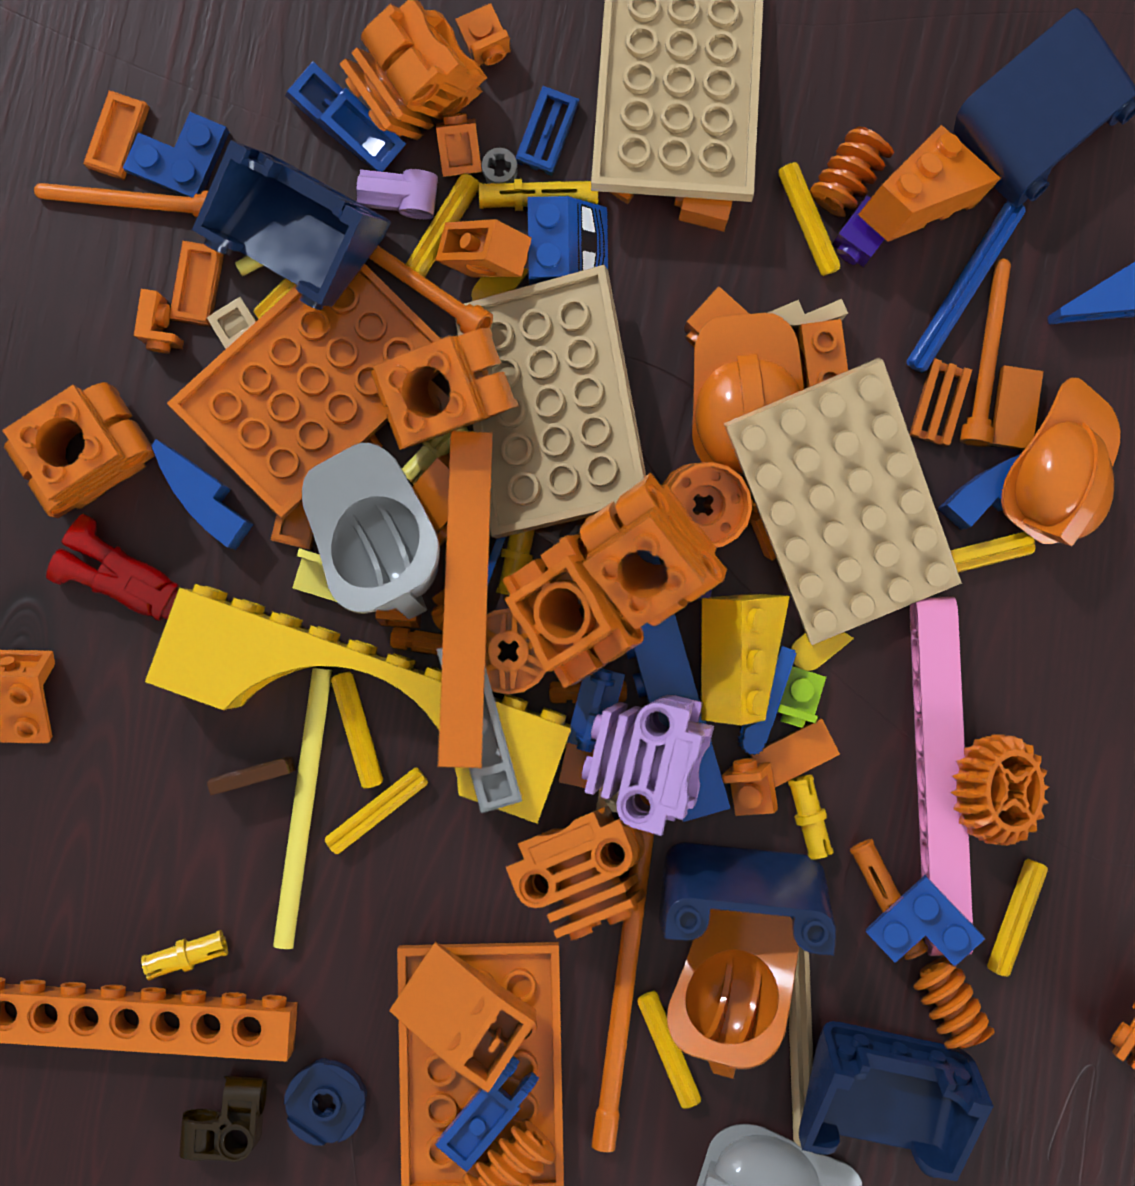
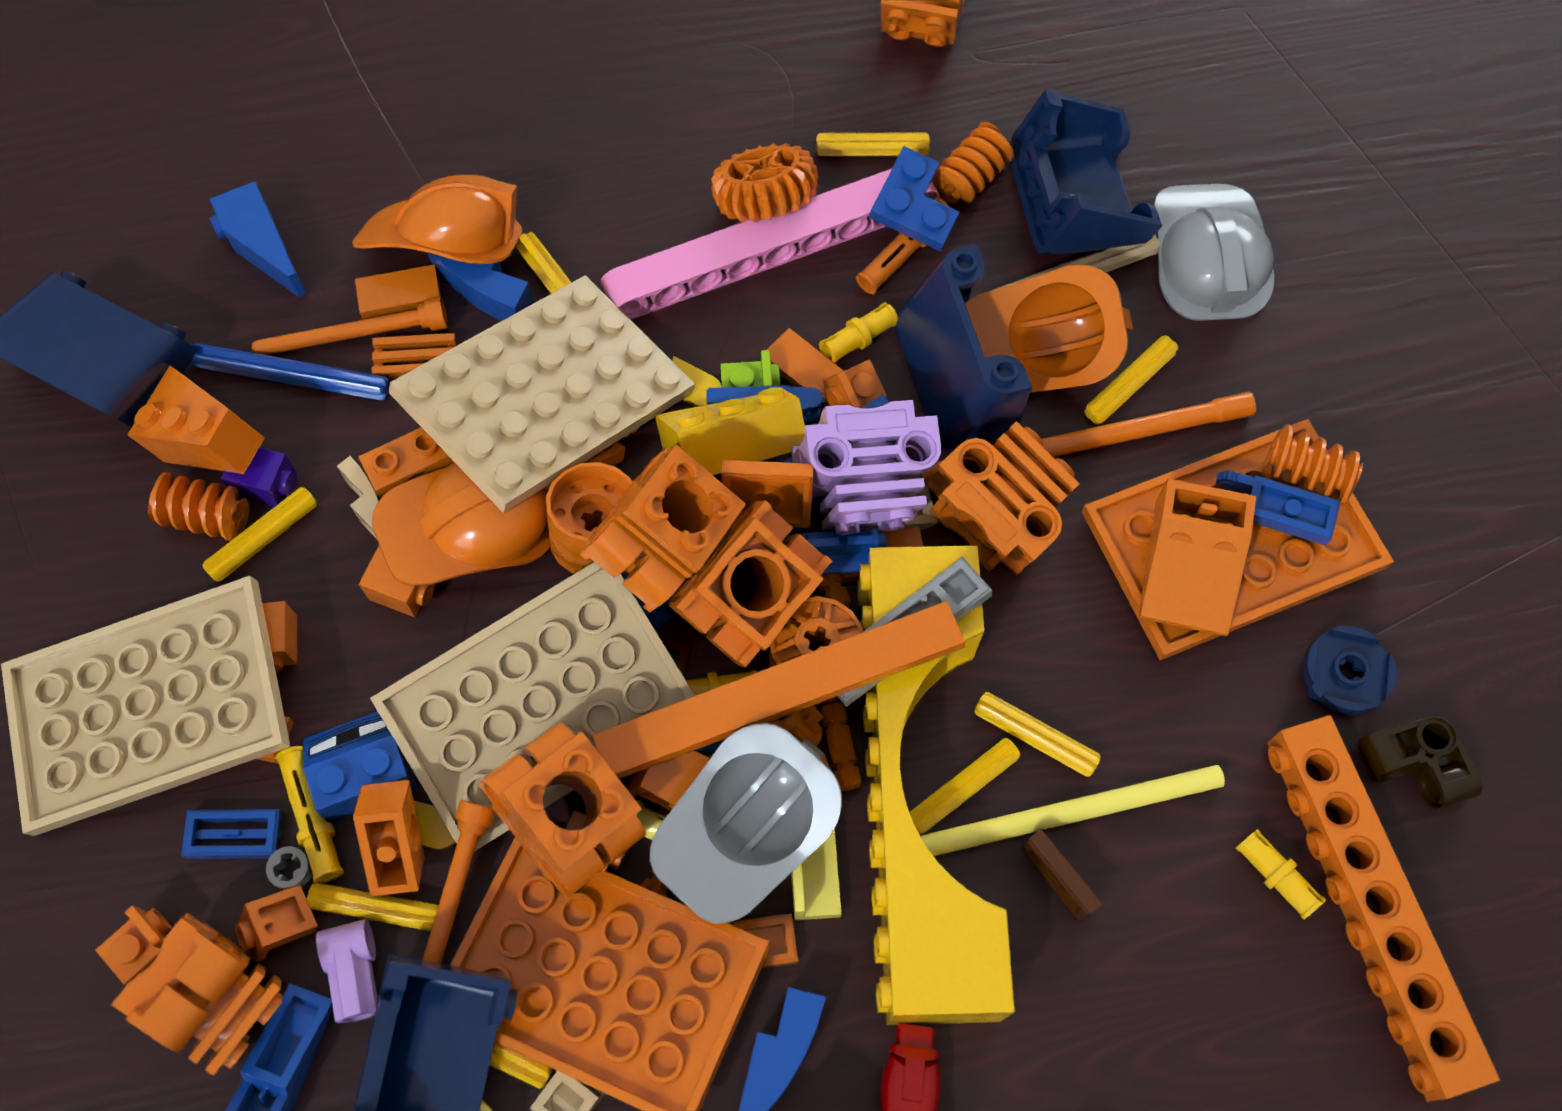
camera: 115 degrees left, 20 degrees down
(655, 660) = (781, 484): none -> orange tile

